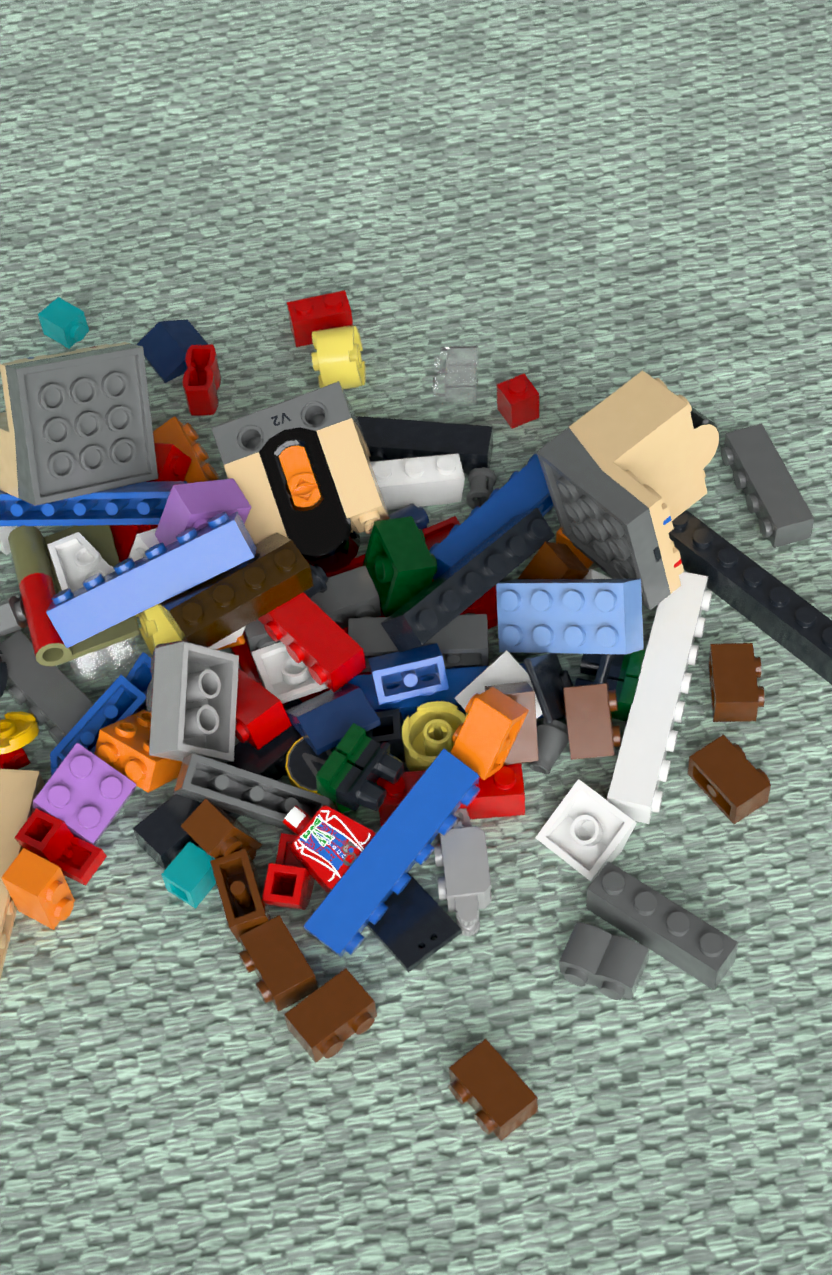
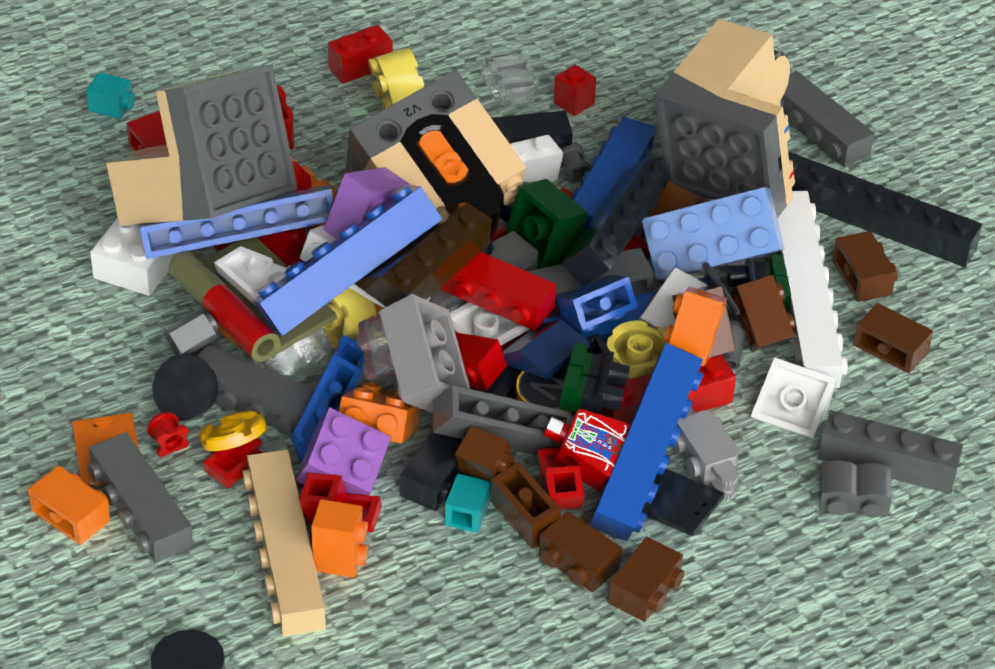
camera: 25 degrees left, 10 degrees down
(492, 1090) = (810, 600): reddish brown brick -> none

